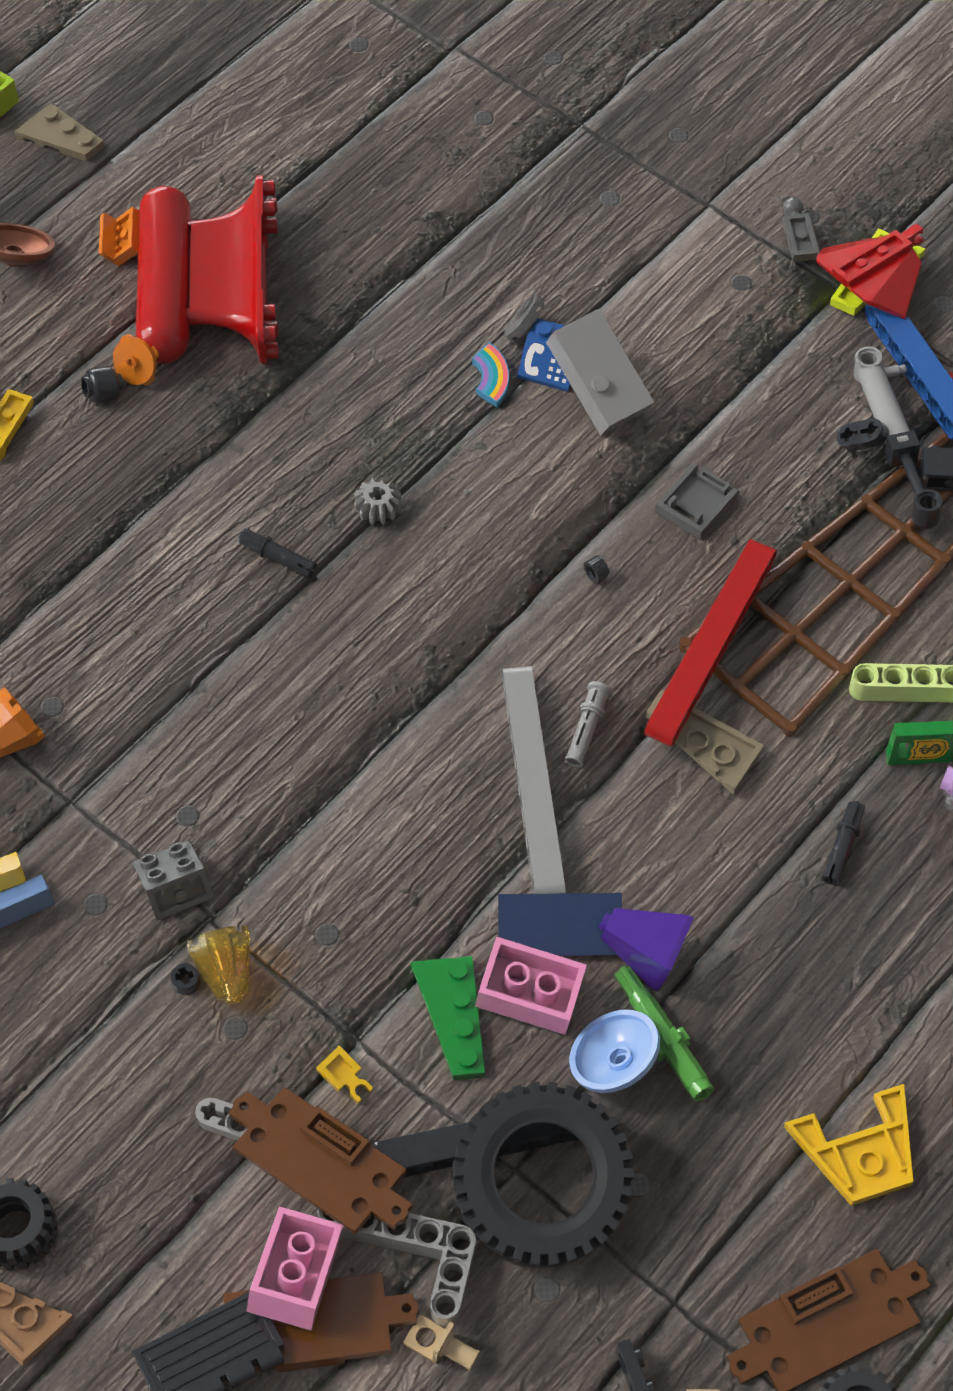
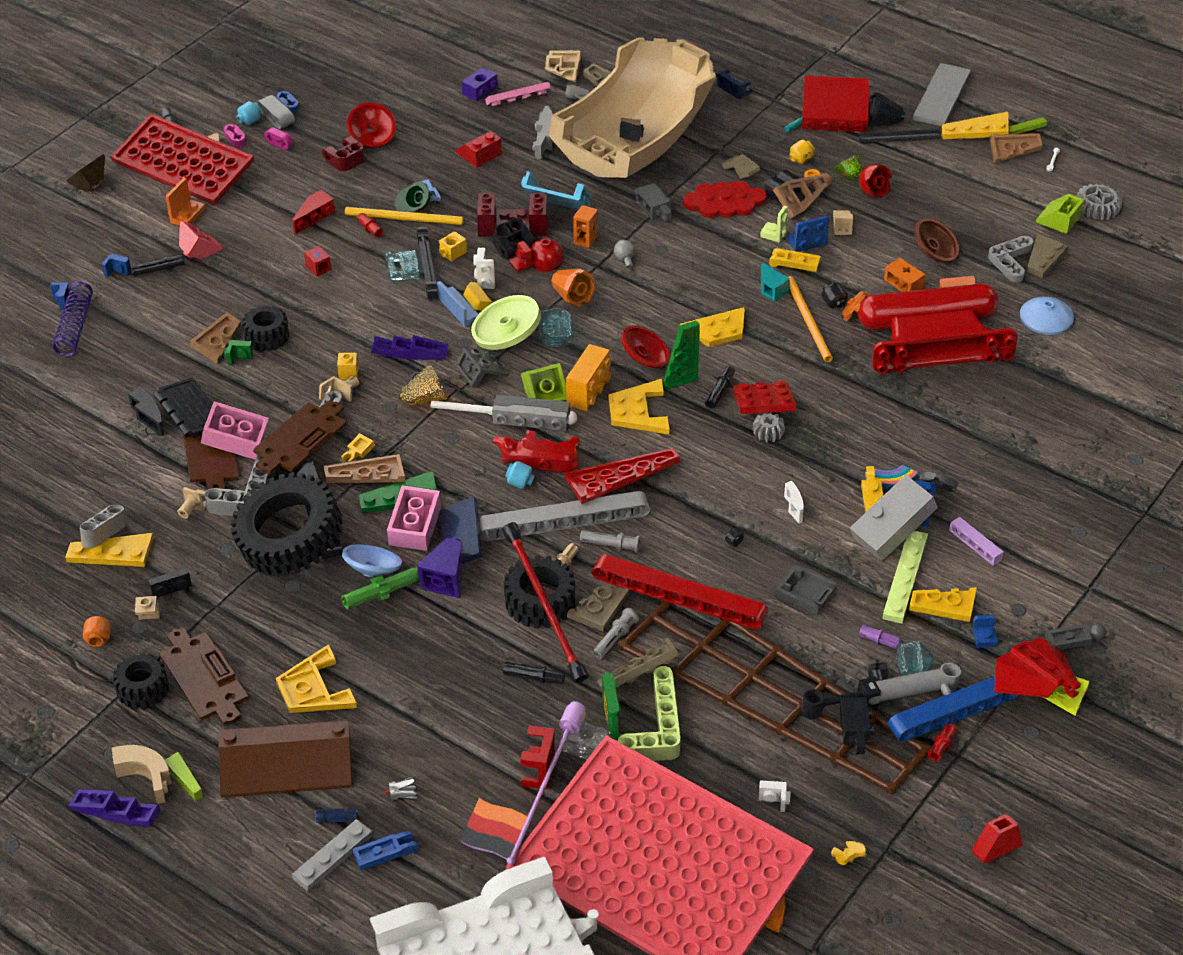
camera: 85 degrees right, 15 degrees down
(53, 459) = (773, 283): none -> teal slope
(55, 178) = (1000, 254): none -> light grey beam
(60, 1269) = (238, 350): none -> green bracket
(78, 295) = (904, 276): none -> orange brick
(82, 829) = (506, 322): none -> yellowish green dish
(102, 760) = (555, 327): none -> clear light blue wheel
(103, 988) = (417, 348): none -> dark purple slope
(137, 543) = (721, 327): none -> yellow wing
(139, 426) = (813, 328): none -> light orange piece
(142, 1084) = (347, 365): none -> yellow brick
(183, 636) = (645, 347): none -> red dish
(188, 155) = (1046, 315): none -> light blue dish
(189, 1097) = (335, 384): none -> tan bracket
(235, 786) = (545, 383): none -> lime slope
(239, 574) = (684, 358): none -> green wing
(244, 717) = (588, 377): none -> light orange brick
(293, 827) = (521, 412): none -> piece
(302, 677) = (630, 409): none -> yellow wing
(320, 497) = (764, 397): none -> red plate
(400, 1054) = (366, 471): none -> medium nougat wing
(403, 797) = (541, 453): none -> red animal
(439, 835) = (519, 475): none -> medium azure head
(460, 712) = (607, 477): none -> red wing
(527, 398) = (871, 488): none -> yellow plate
(542, 486) = (795, 501): none -> white slope
(620, 788) = (568, 554): none -> tan axle
(629, 298) = (976, 541): none -> lavender piece
(641, 820) = (576, 668): none -> red hose
(689, 851) = (528, 607): none -> black tyre
(696, 392) = (905, 577): none -> yellowish green plate
(735, 350) = (949, 604): none -> yellow wing
(762, 726) = (619, 628): none -> light grey pin
(786, 320) = (984, 631): none -> blue bracket
(789, 430) = (879, 636): none -> medium lavender axle
(842, 401) = (913, 658): none -> clear light blue slope
(844, 692) = (647, 664): none -> dark tan wing

